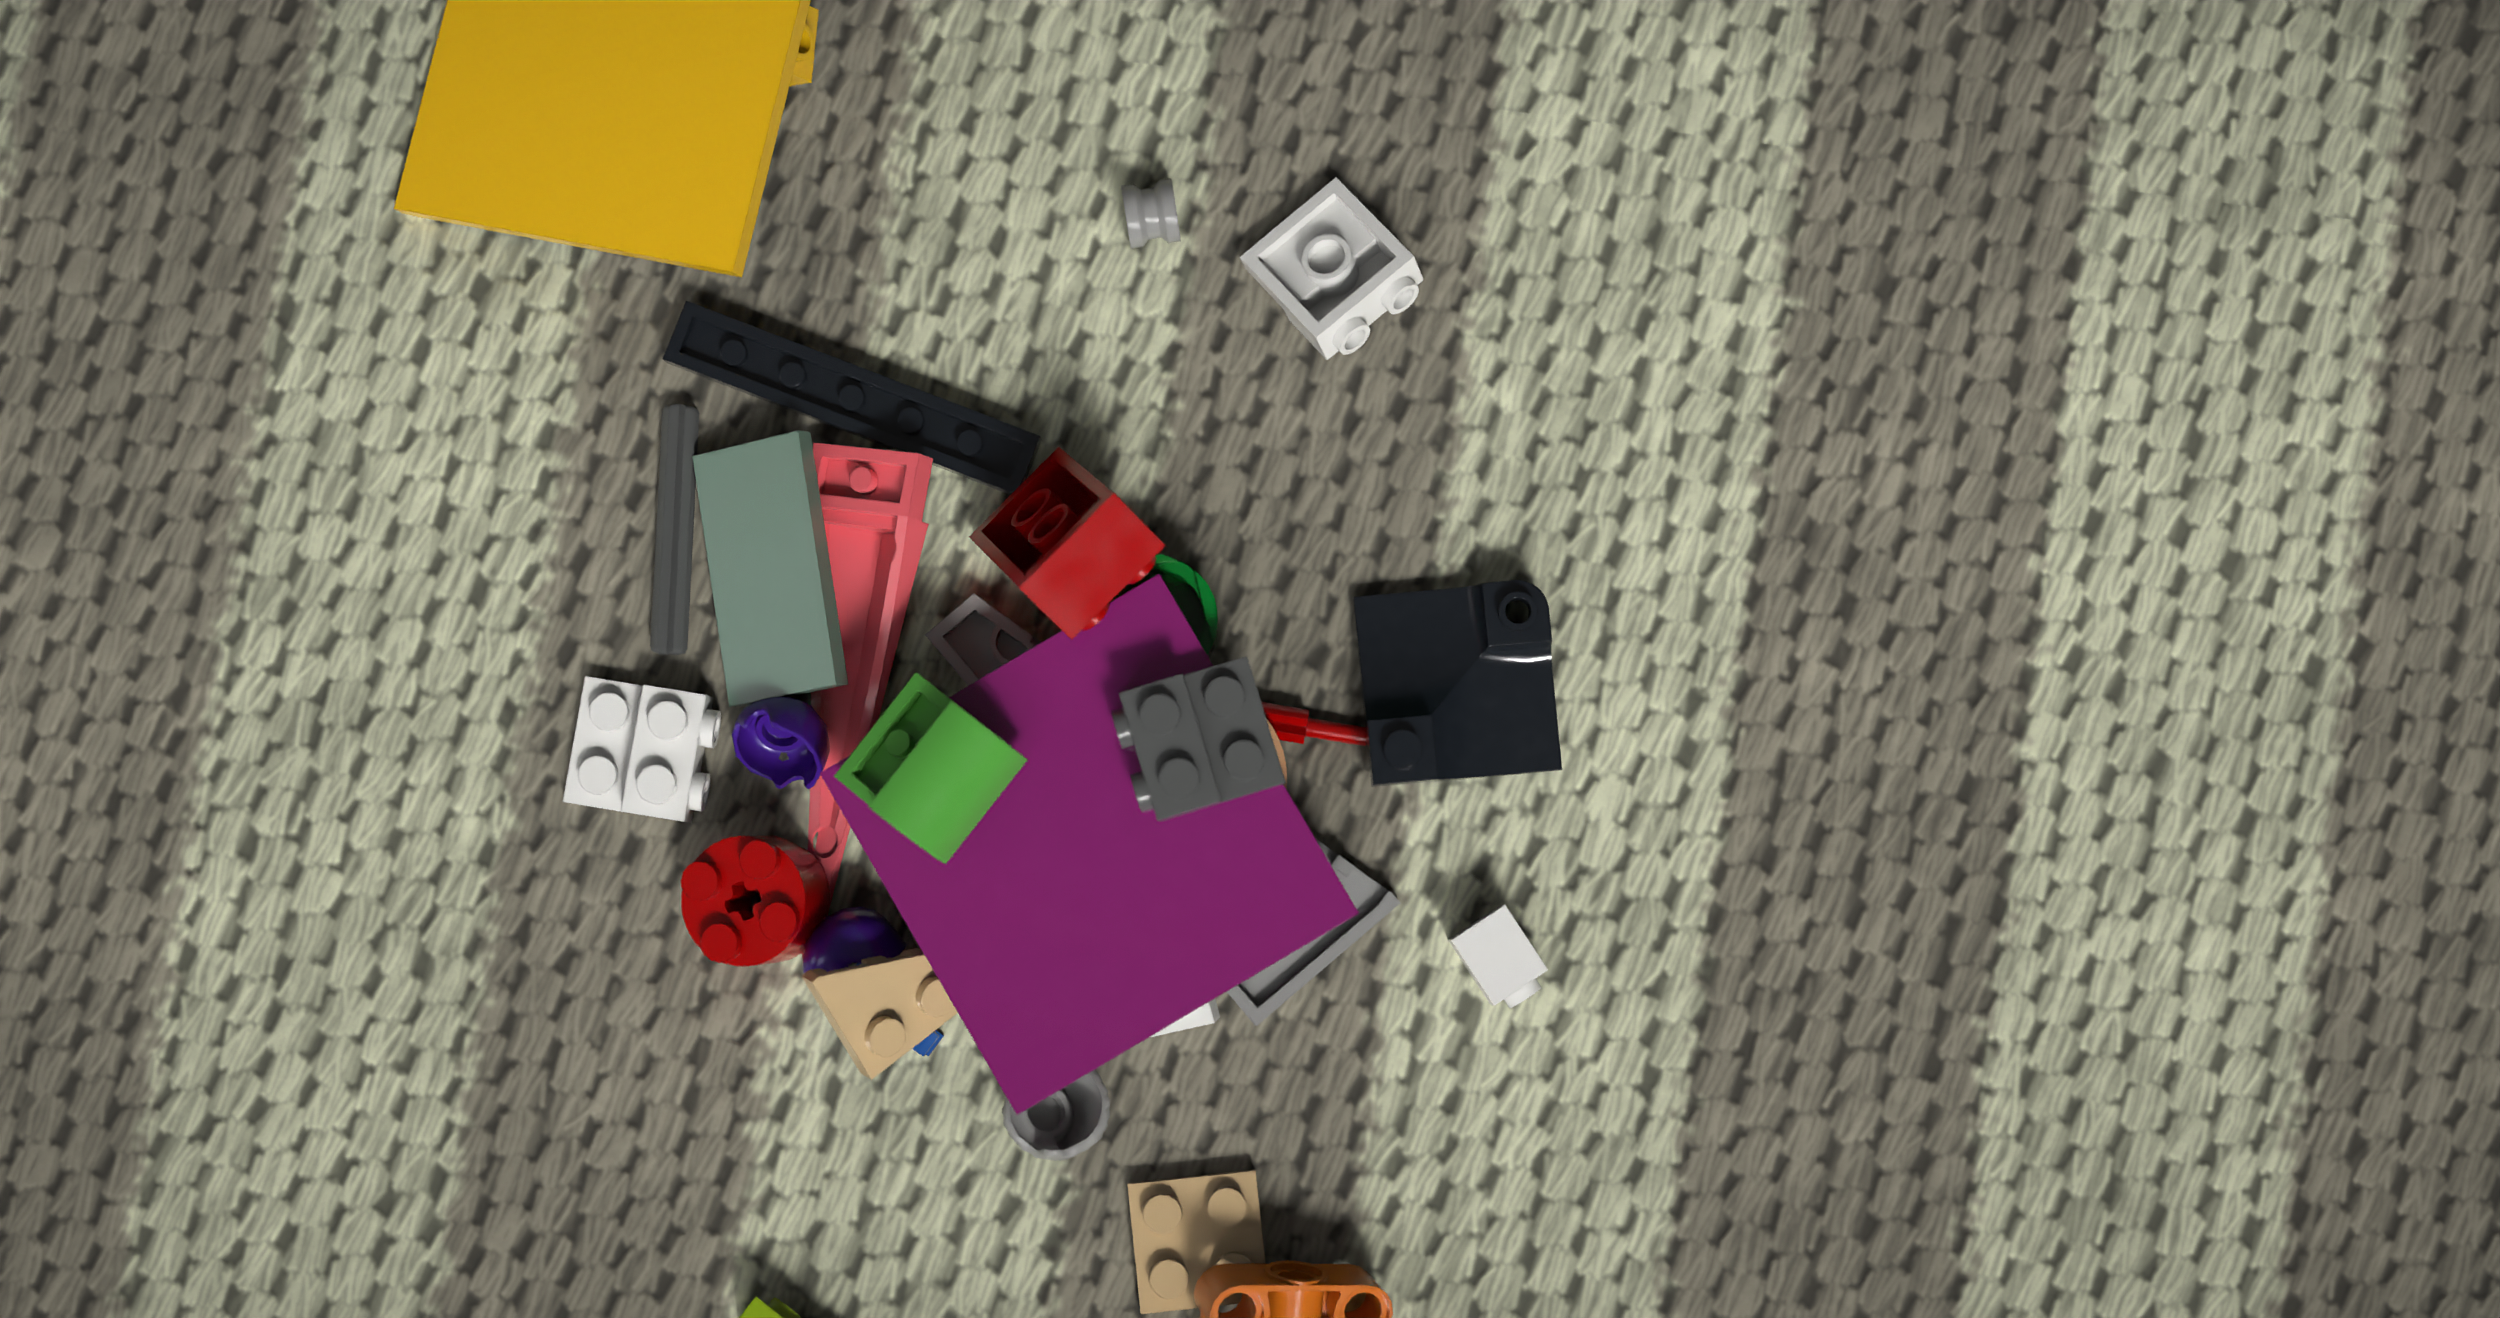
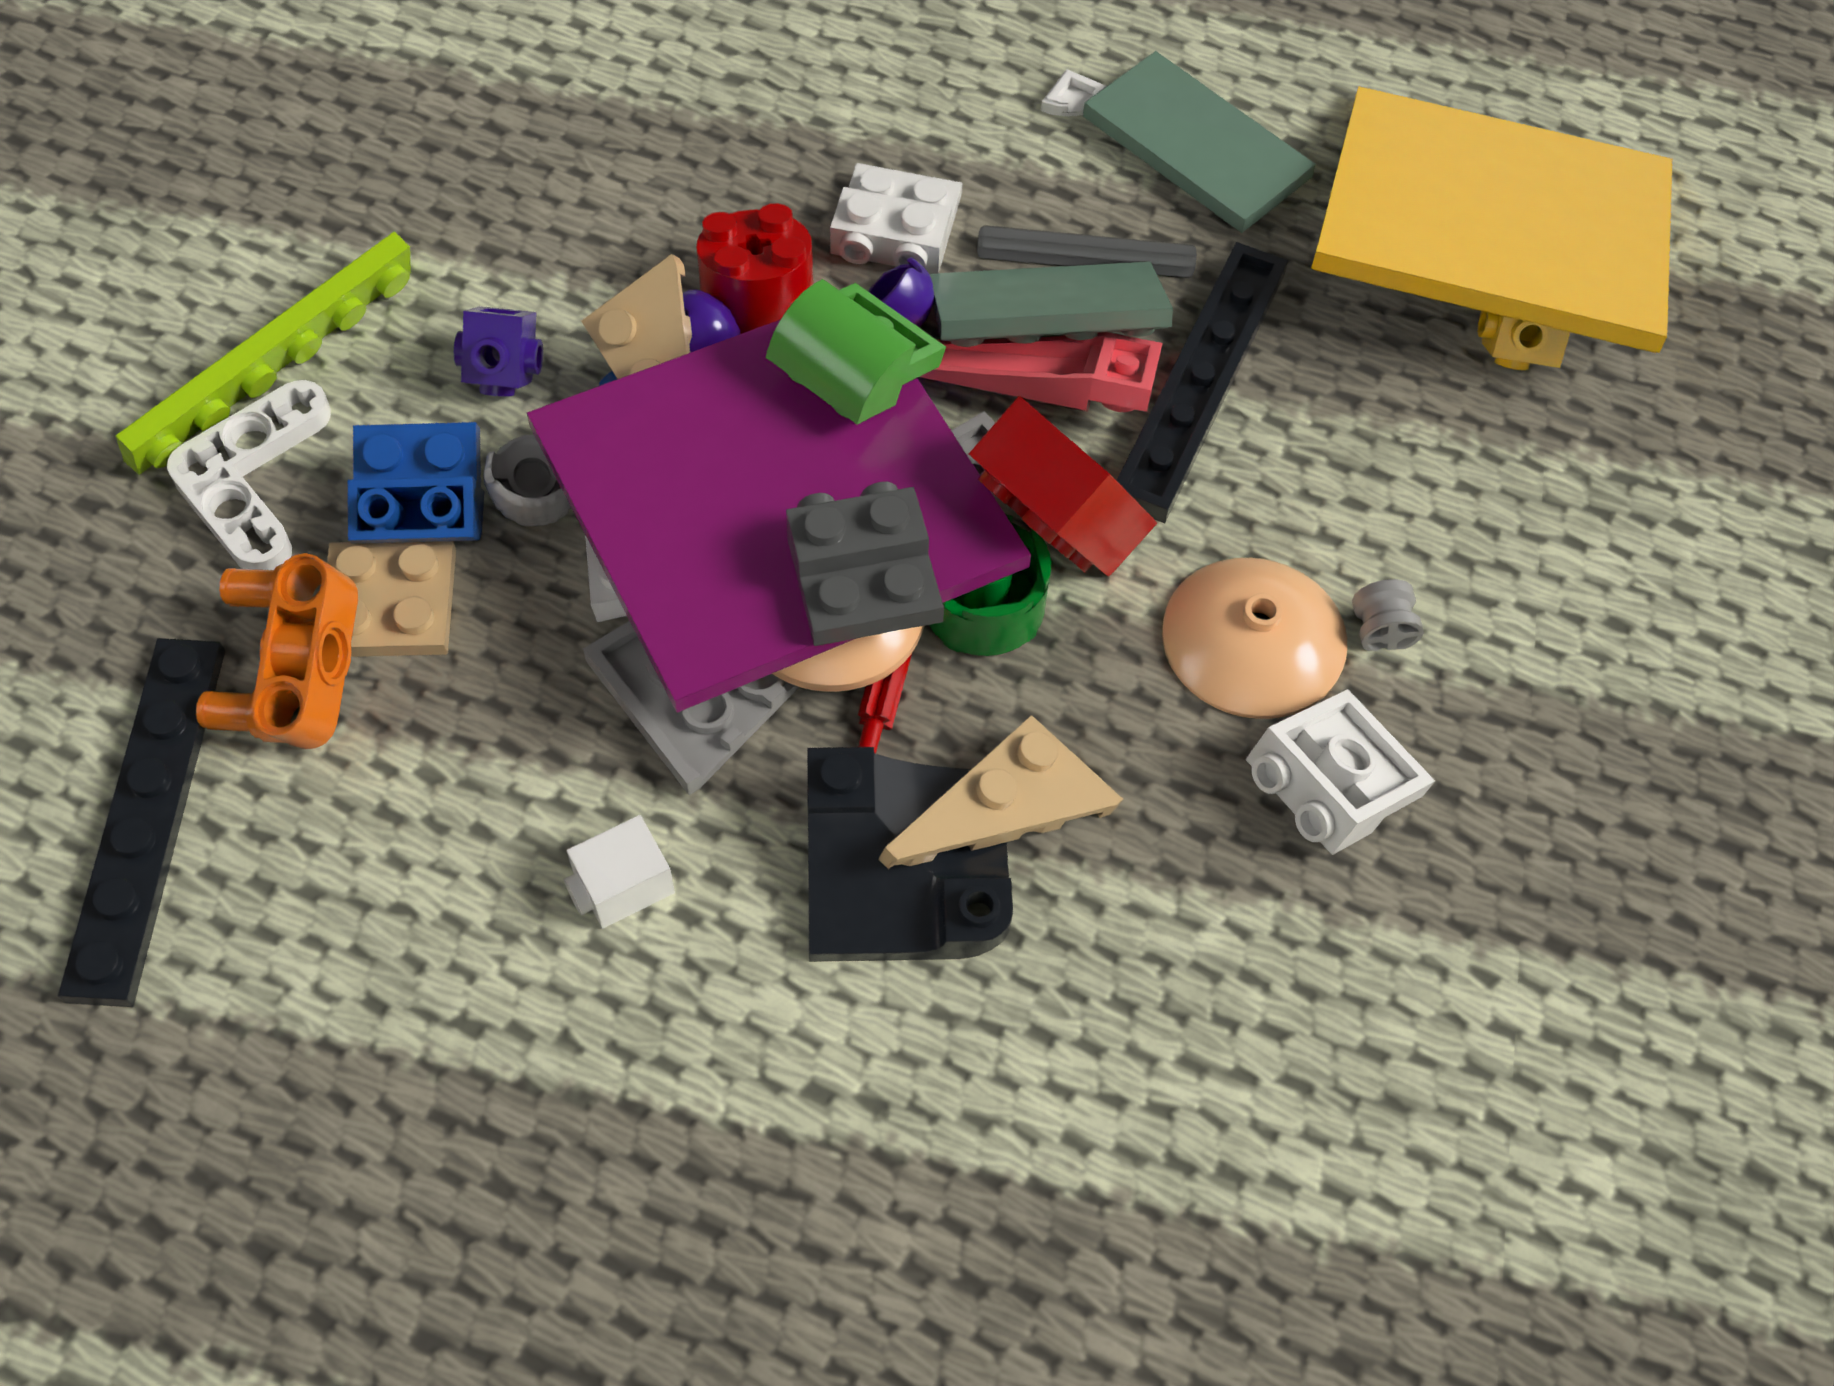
camera: 90 degrees right, 25 degrees down
(426, 548) = (1070, 94): none -> white tile
(497, 402) = (1199, 141): none -> sand green tile
(884, 1173) = (498, 349): none -> dark purple brick
(1075, 1231) = (415, 483): none -> blue brick
(1181, 391) = (1250, 662): none -> light nougat dish
(1383, 583) = (1016, 789): none -> tan wing

